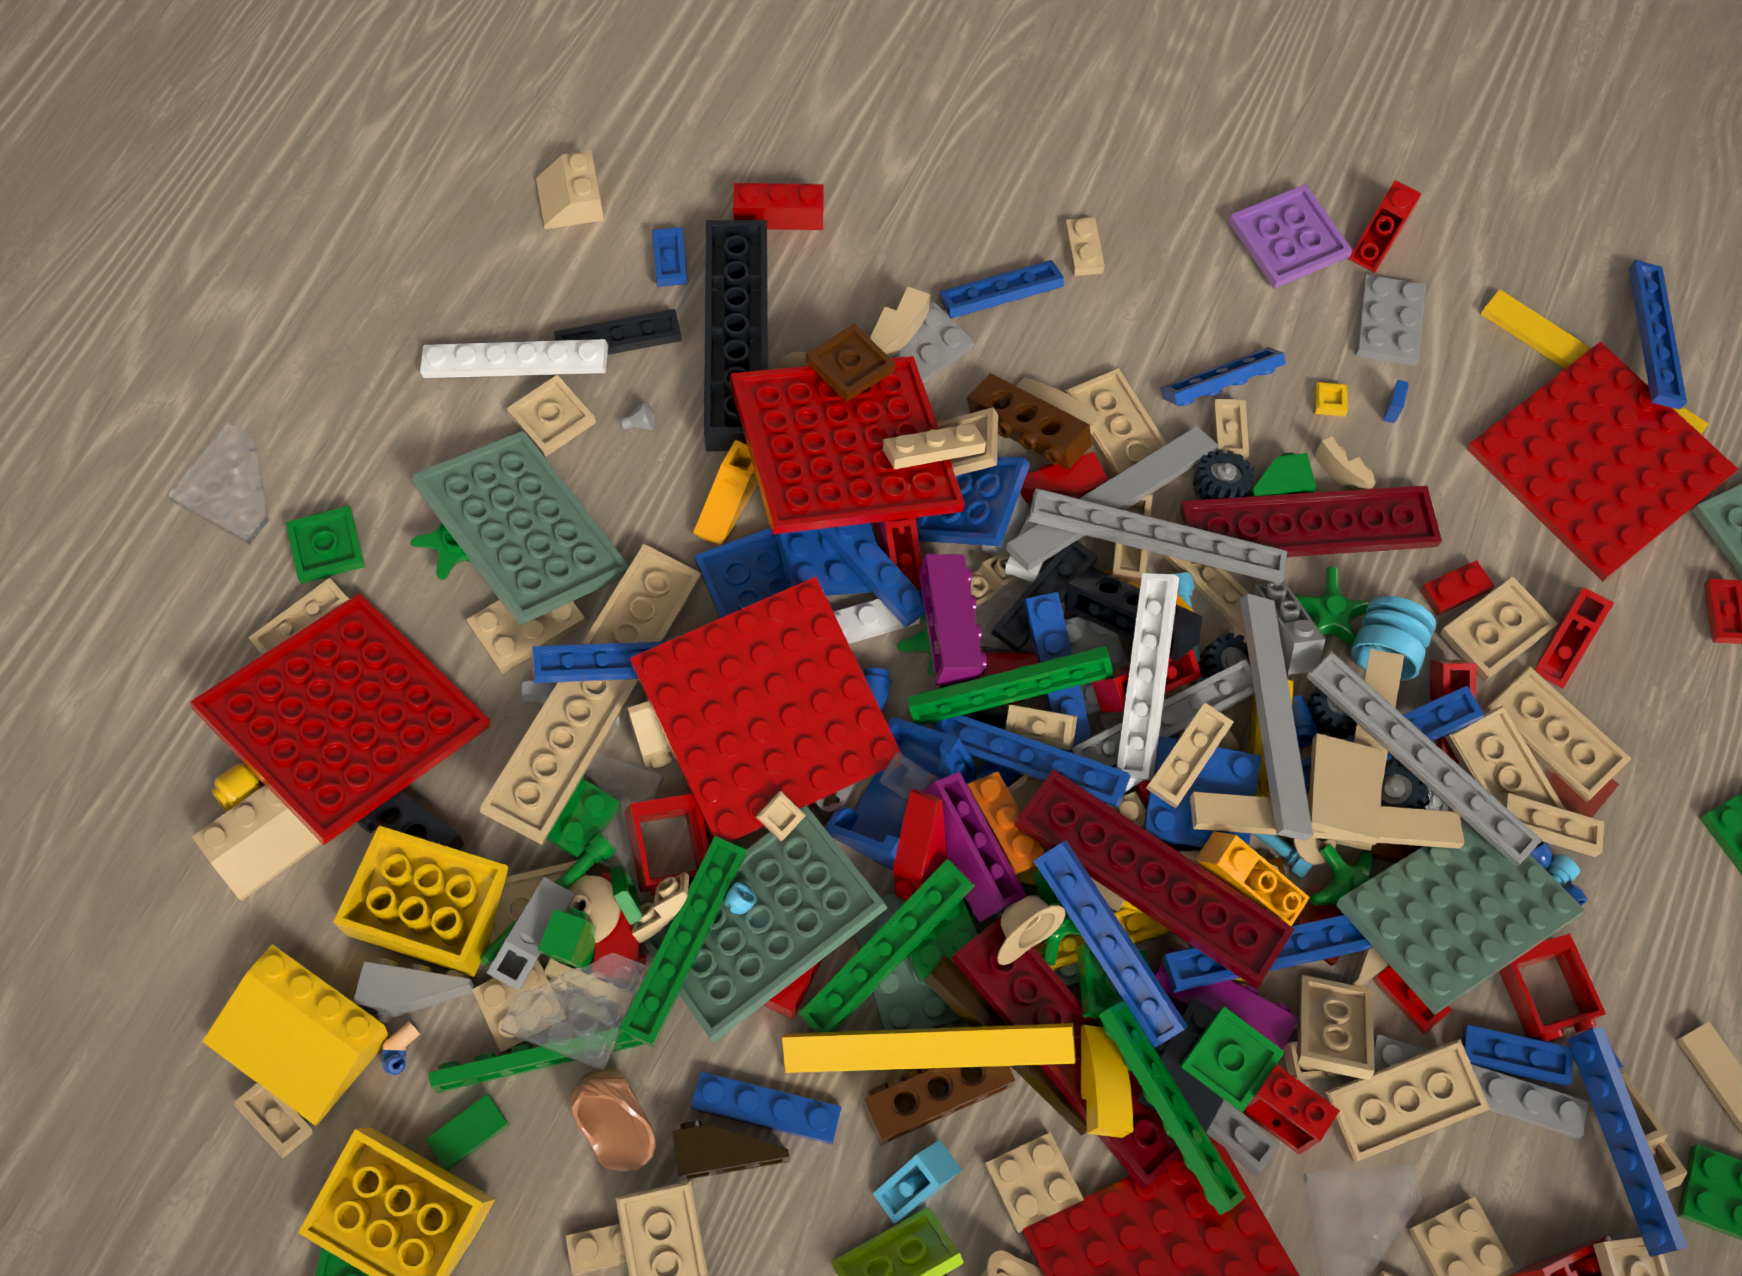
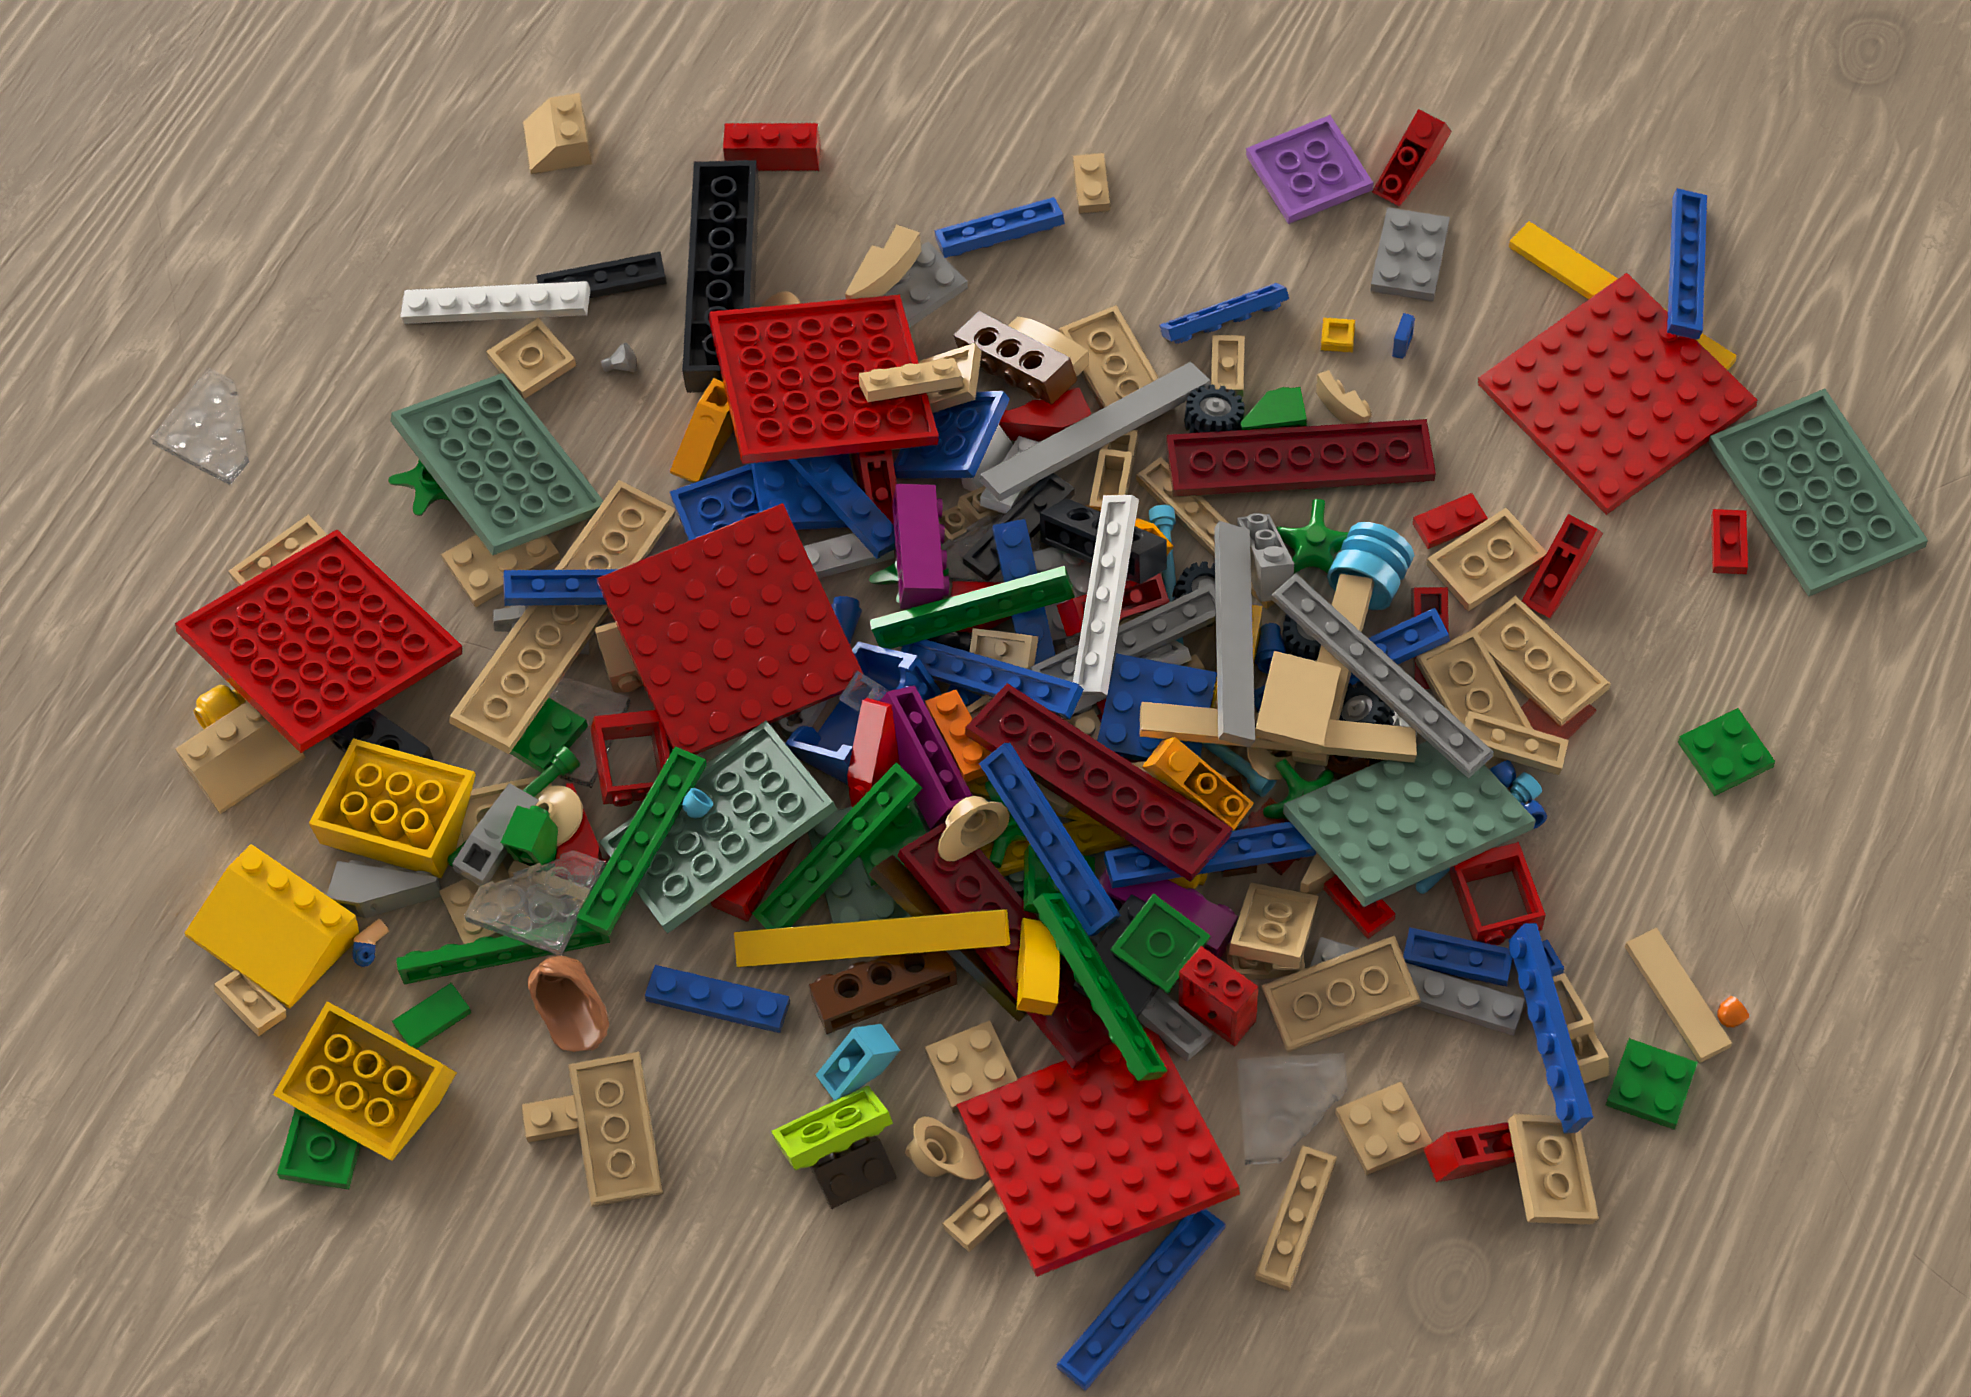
camera: 10 degrees right, 5 degrees down
(325, 544) = (304, 484): green plate -> none
(626, 894) = (588, 801): green tile -> none
(668, 901) = (626, 806): tan slope -> none
(669, 257) = (657, 199): blue plate -> none
(716, 1151) = (670, 1033): dark brown slope -> none
(780, 816) = (739, 728): tan tile -> none
(850, 362) = (831, 299): reddish brown plate -> none
(1158, 536) = (1135, 467): light grey tile -> none
(1189, 755) = (1141, 668): tan plate -> none

